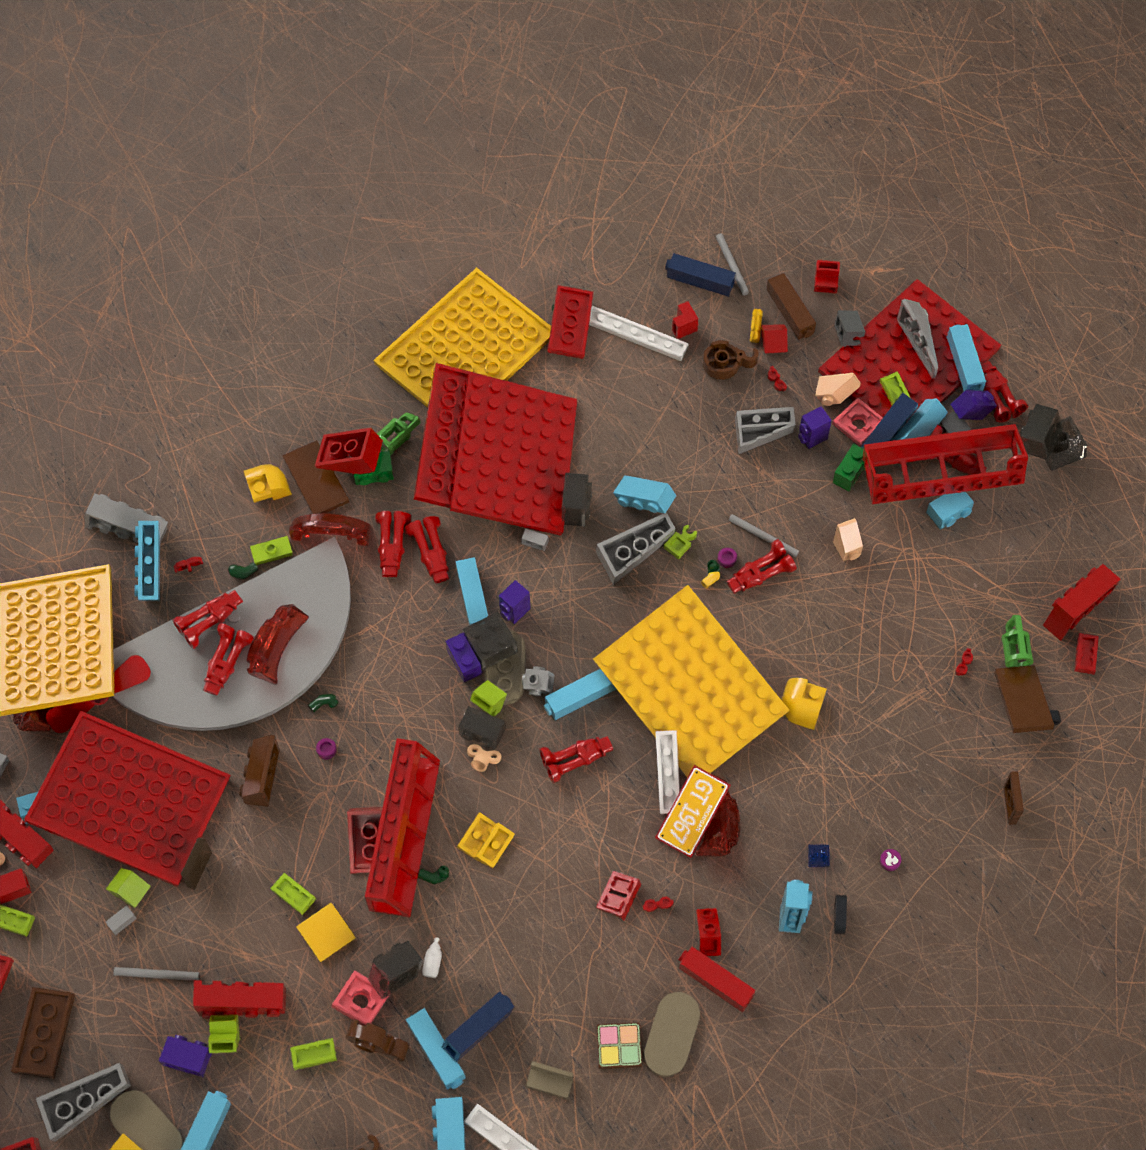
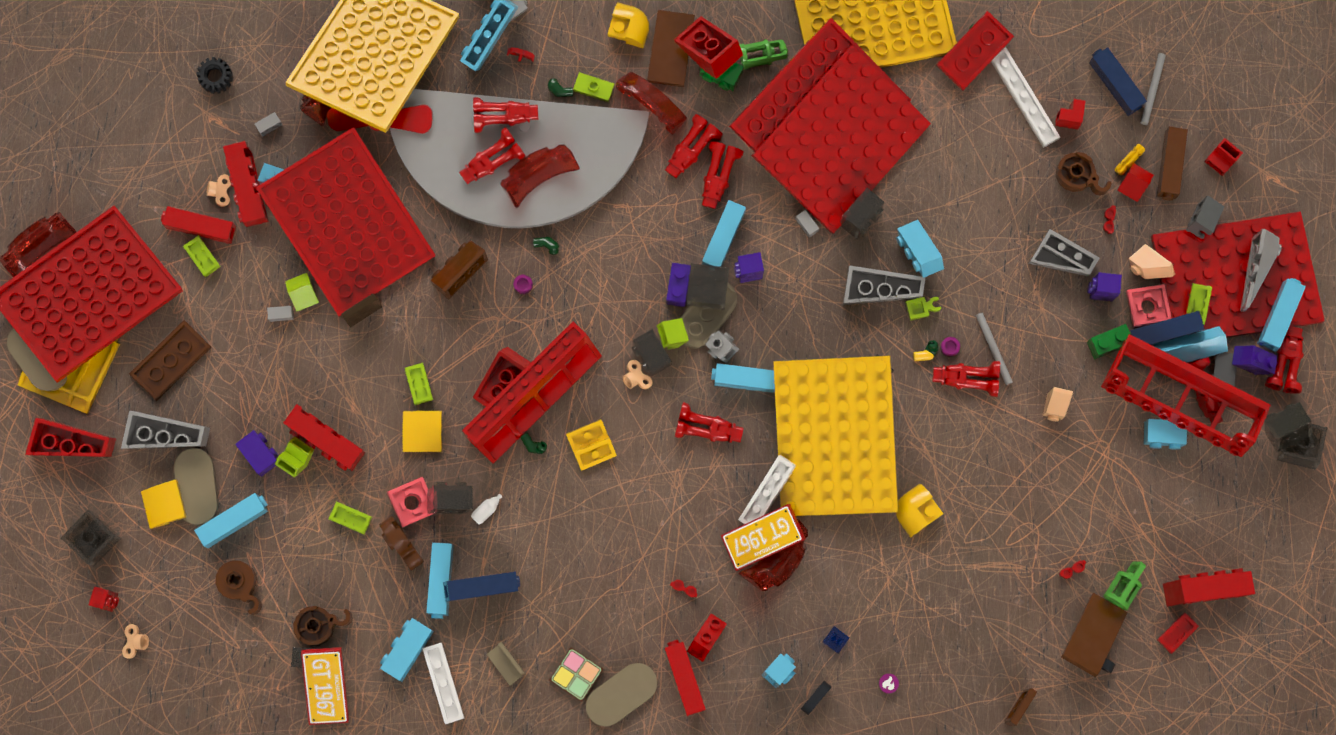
camera: 35 degrees right, 15 degrees up
(152, 973) = (278, 373): light grey bar -> none
(616, 904) = (651, 563): piece -> none

